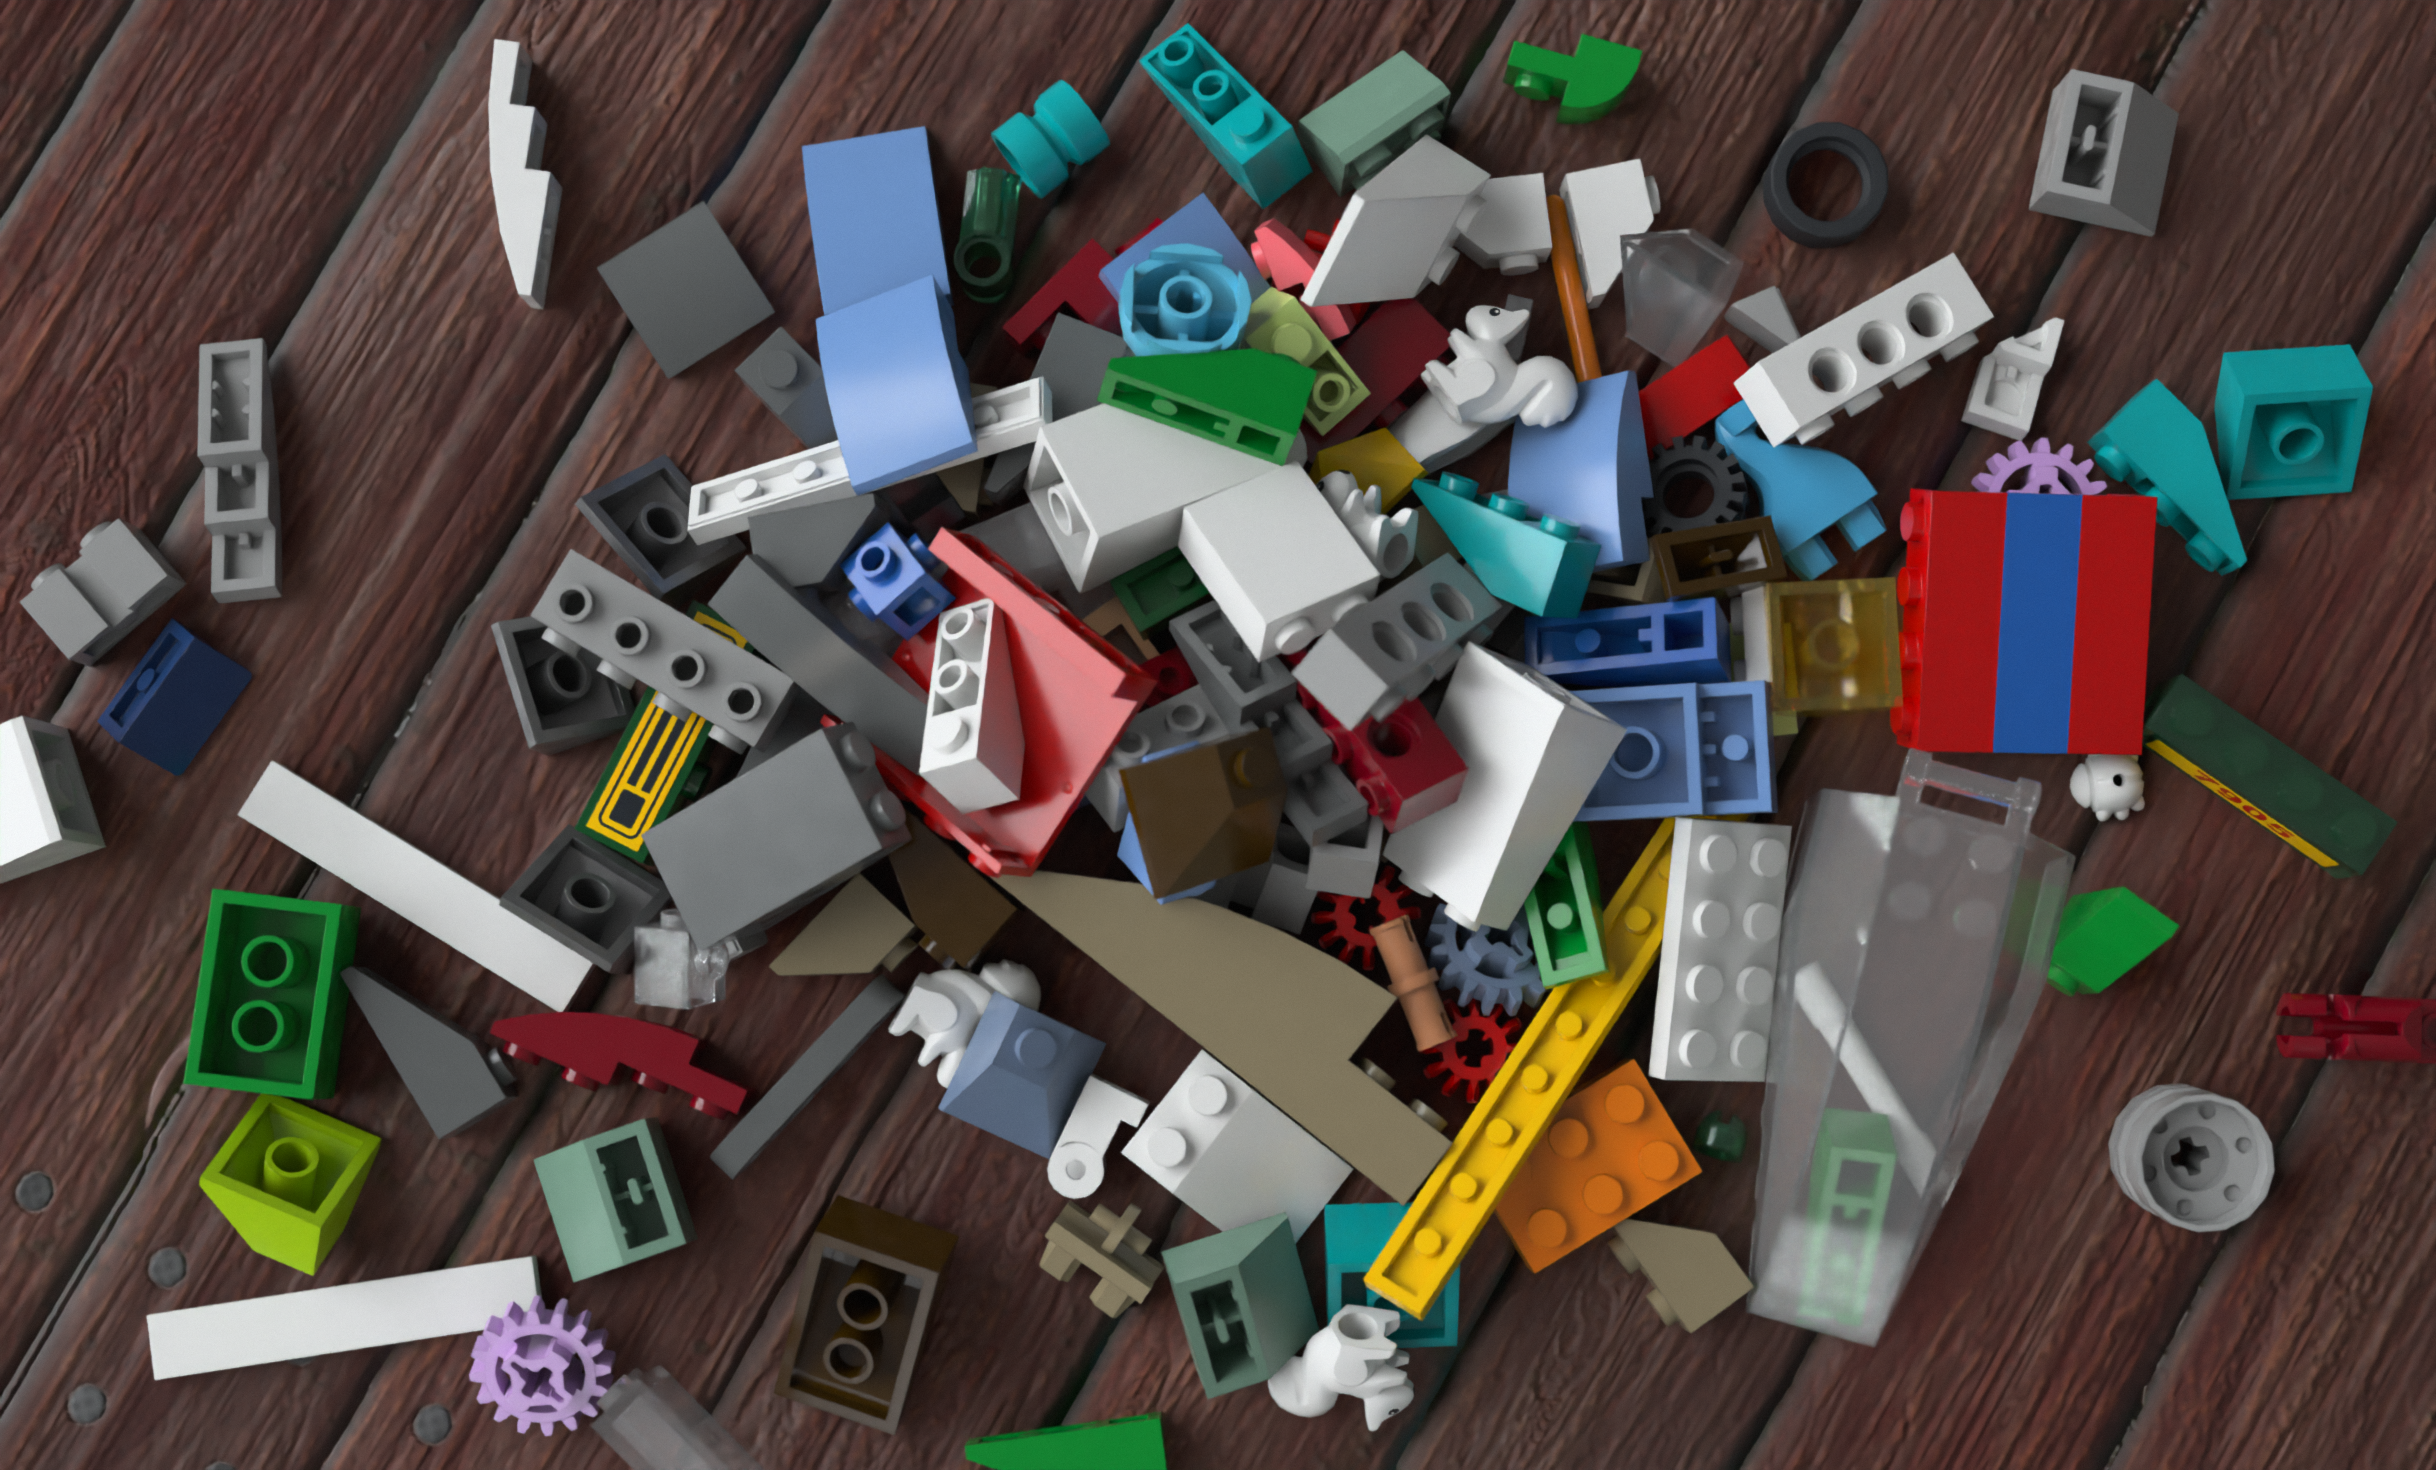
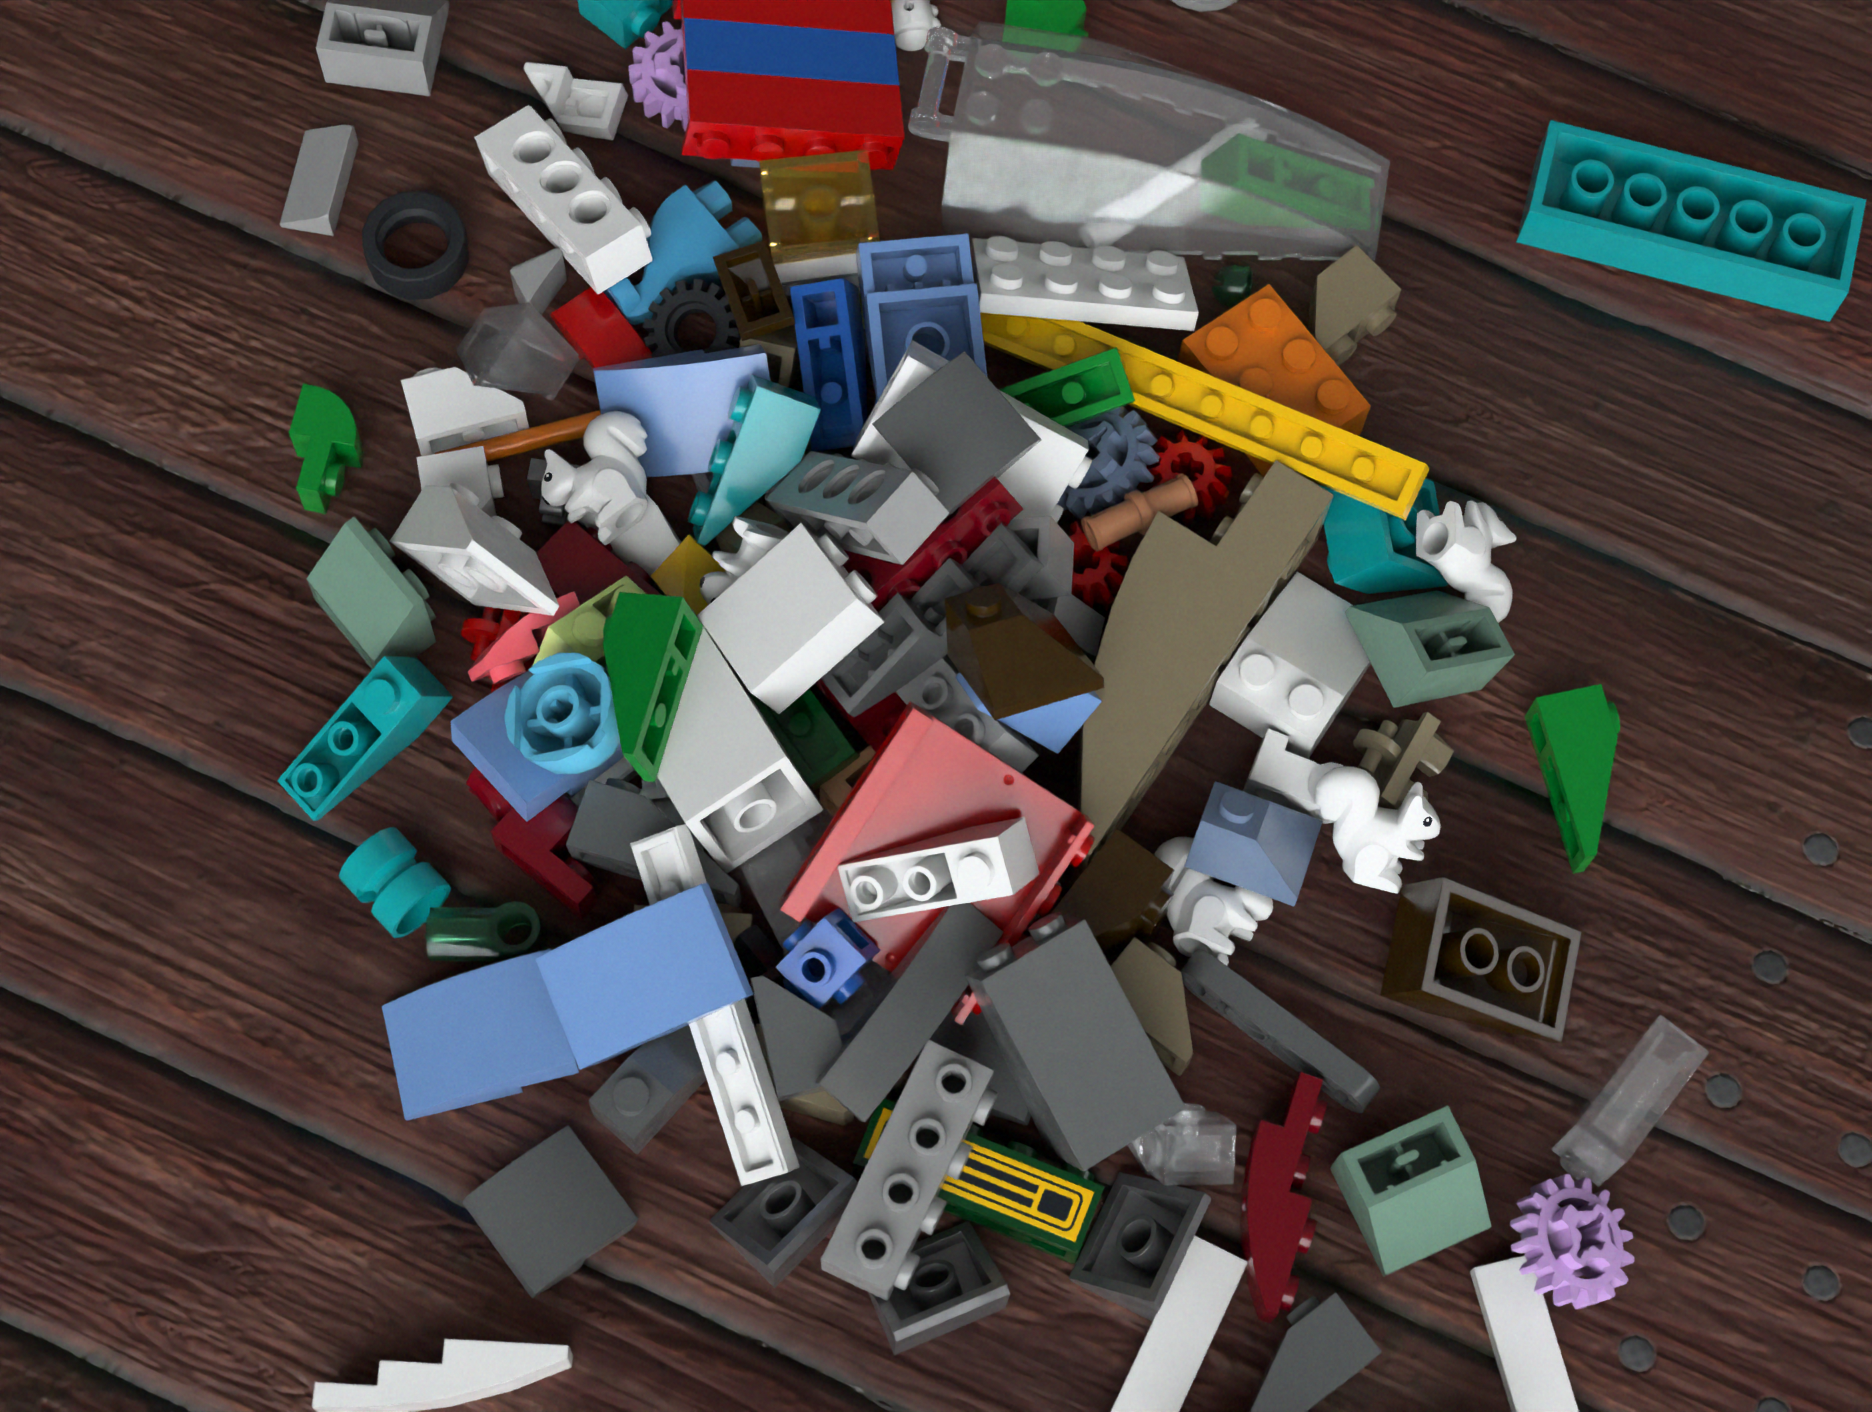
camera: 100 degrees left, 15 degrees down
(1011, 1208) = (1374, 836): none -> white animal
(1468, 755) = (957, 431): none -> dark grey slope
(1921, 82) = (320, 179): none -> light grey slope

